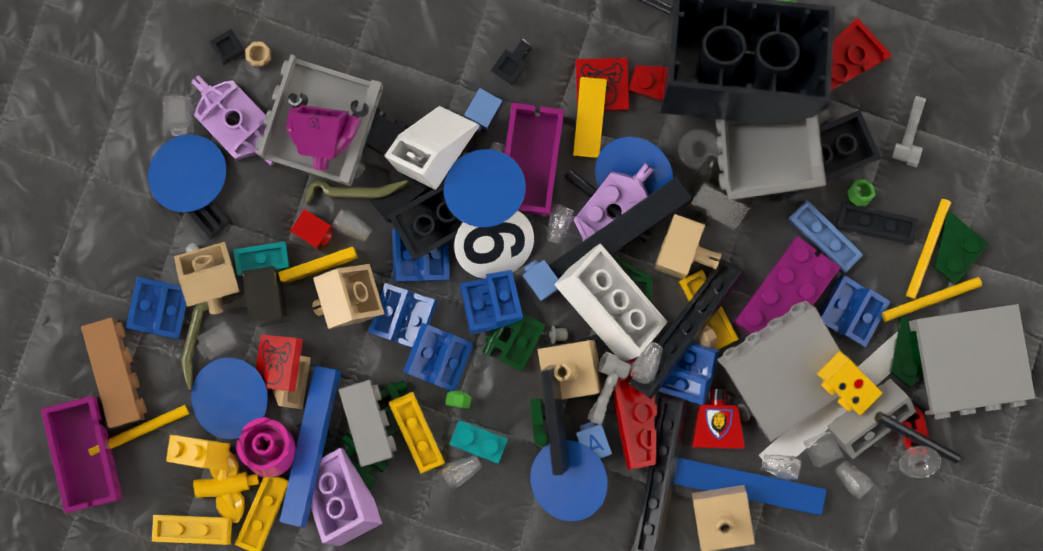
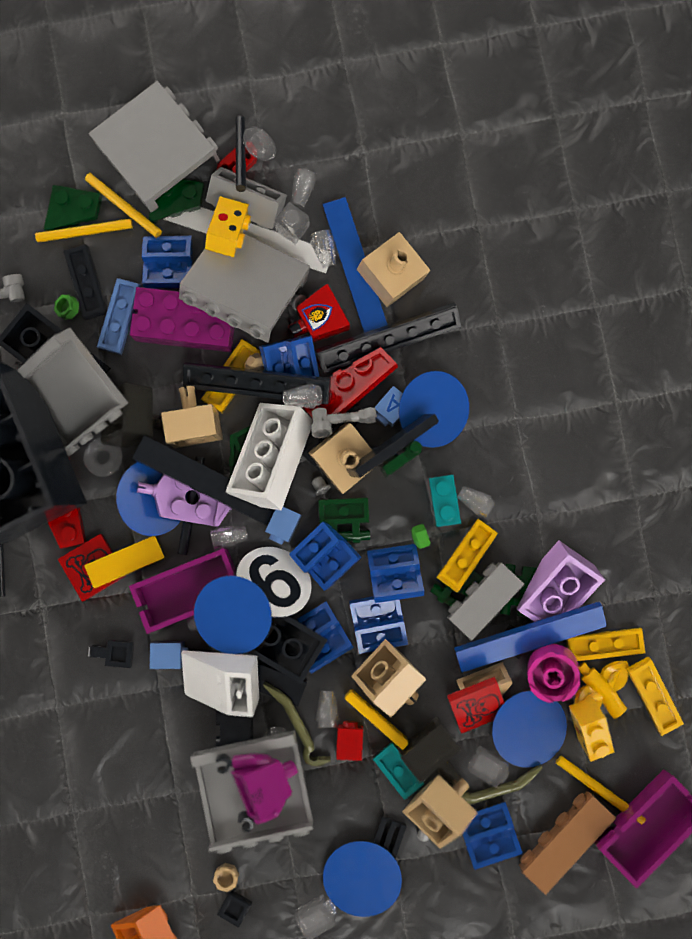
camera: 115 degrees left, 0 degrees up
(214, 108) = (289, 887): lavender plate -> none

